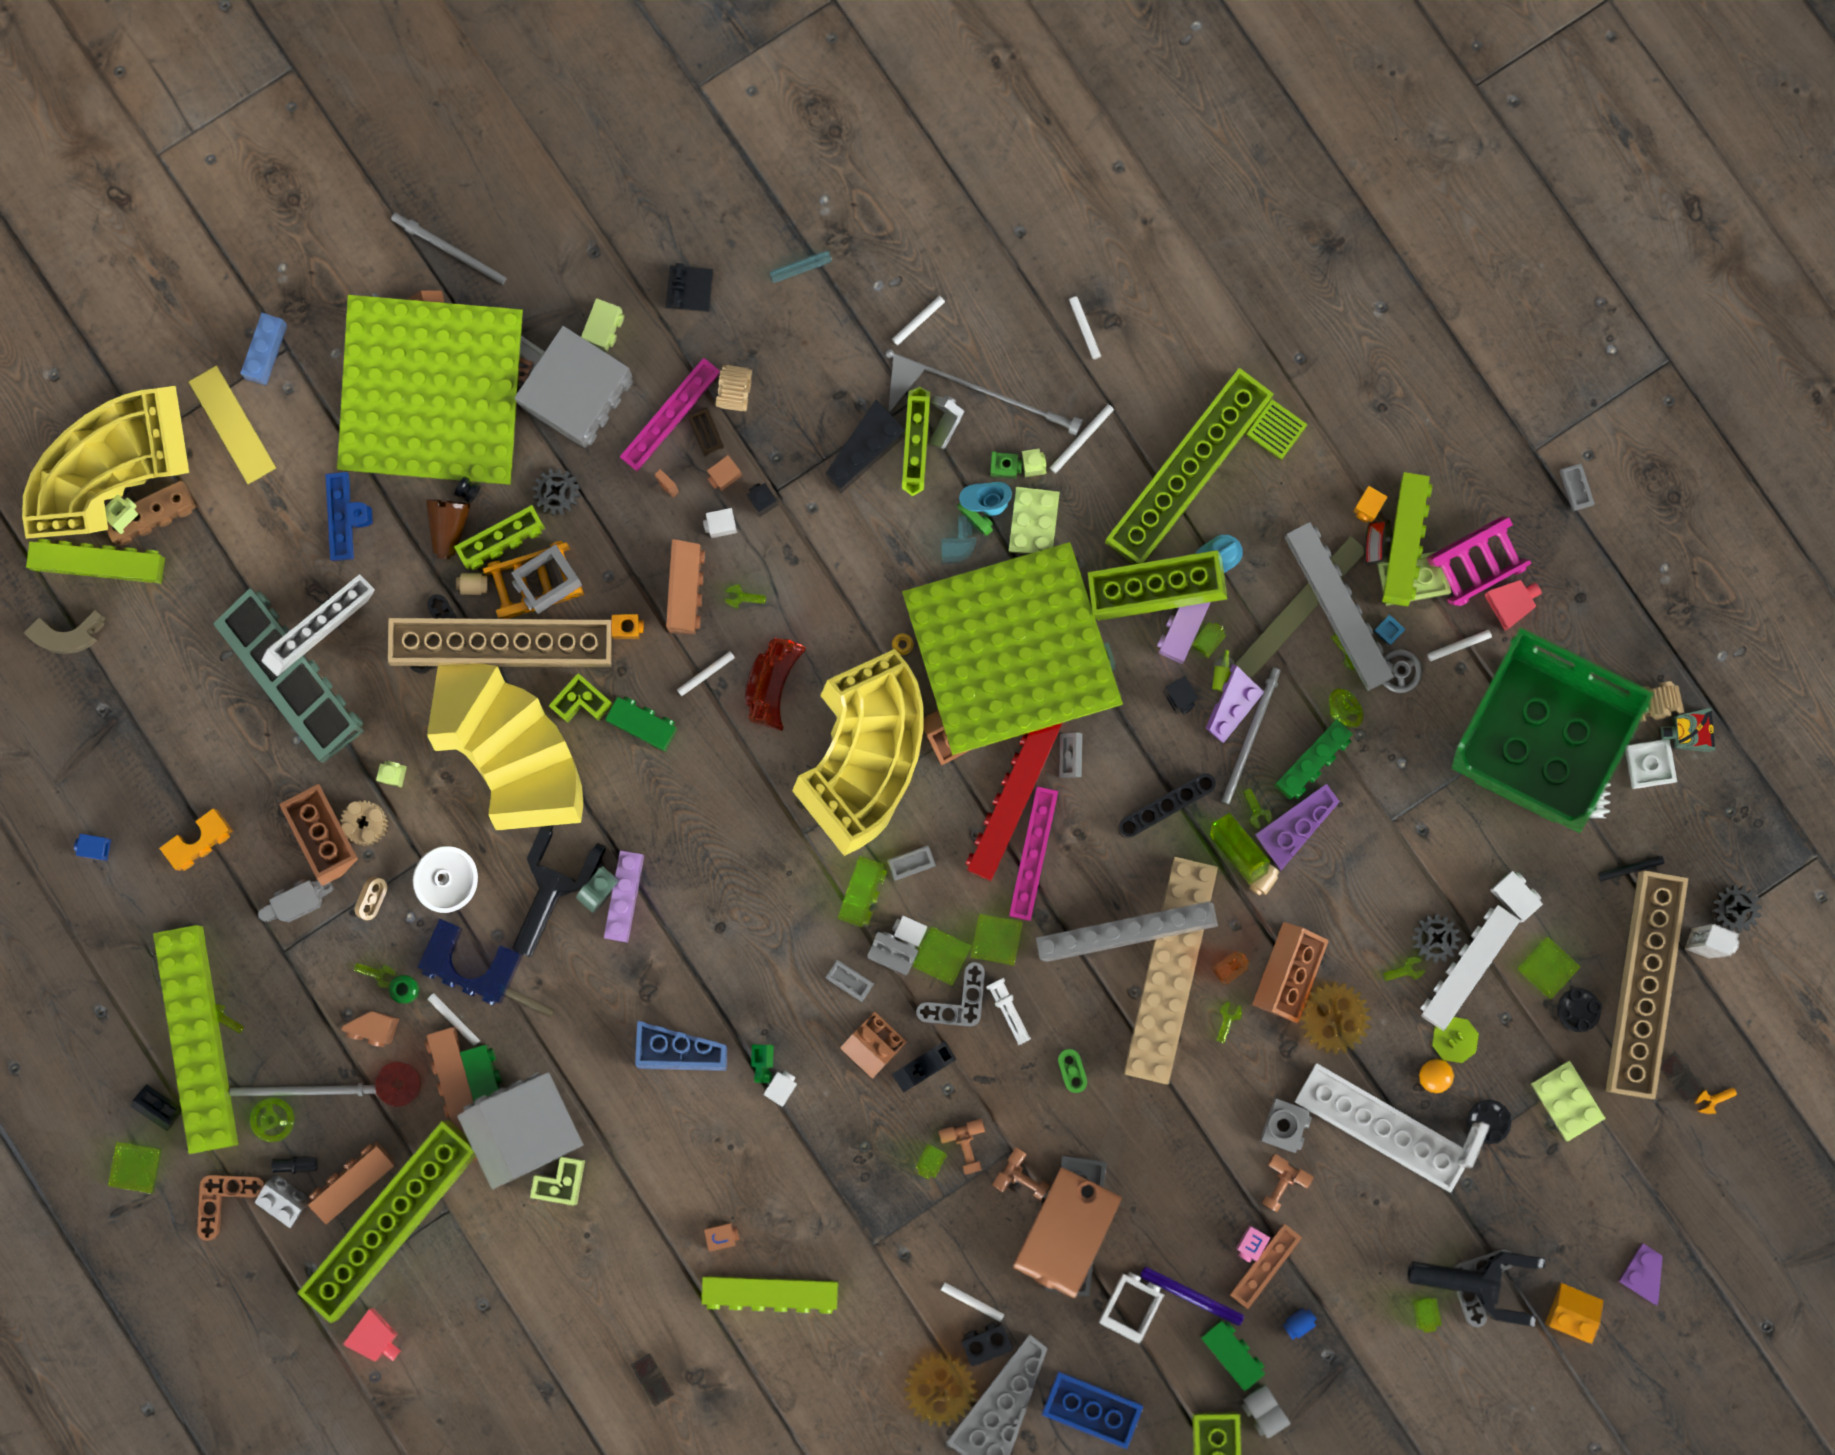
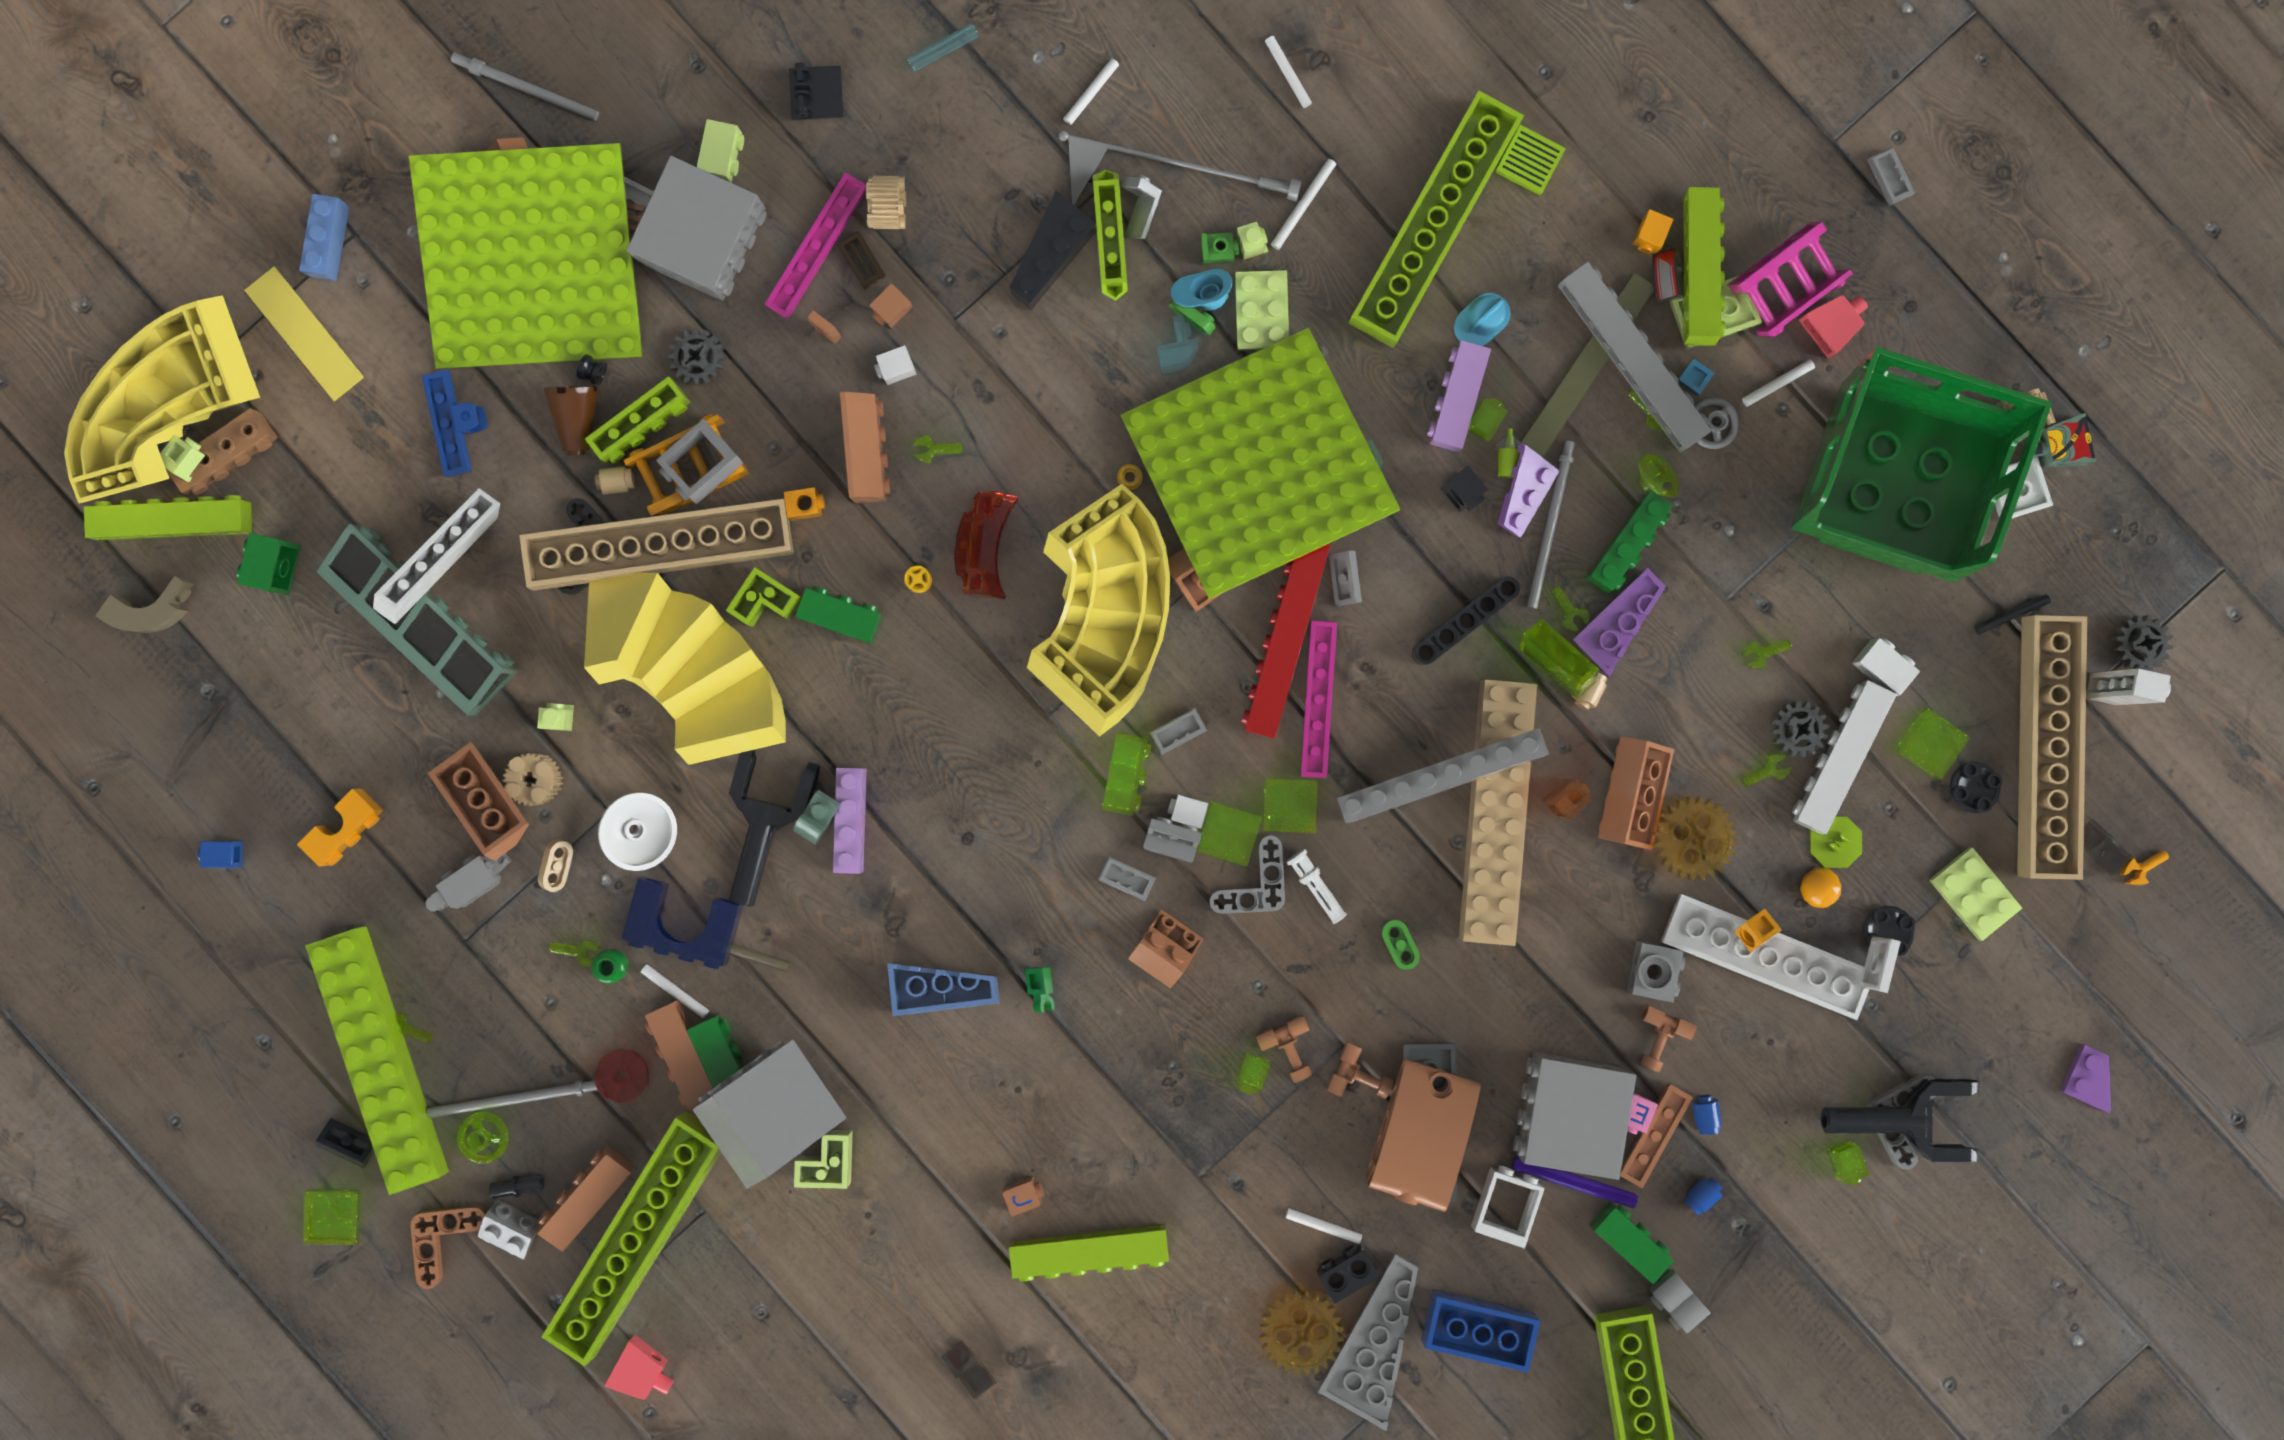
camera: 10 degrees left, 5 degrees up
(174, 611) = (268, 564): none -> green brick
(374, 1026) = (583, 1016): nougat slope -> none
(705, 673) = (905, 545): white bar -> none
(709, 700) = (914, 576): none -> yellow wheel
(762, 498) = (939, 329): black brick -> none
(781, 1088) = (1066, 1014): white brick -> none
(924, 1066) = (1228, 965): black brick -> none
(1157, 585) = (1420, 363): lime brick -> none
(1197, 1236) = (1574, 1115): none -> light grey brick
(1228, 1019) = (1571, 858): clear neon green bar -> none
(1312, 1254) = (1707, 1114): none -> blue brick
(1374, 1101) = (1757, 930): none -> light orange brick
(1420, 869) = (1765, 652): none -> clear neon green bar
(1575, 1313) = (2018, 1137): light orange slope -> none

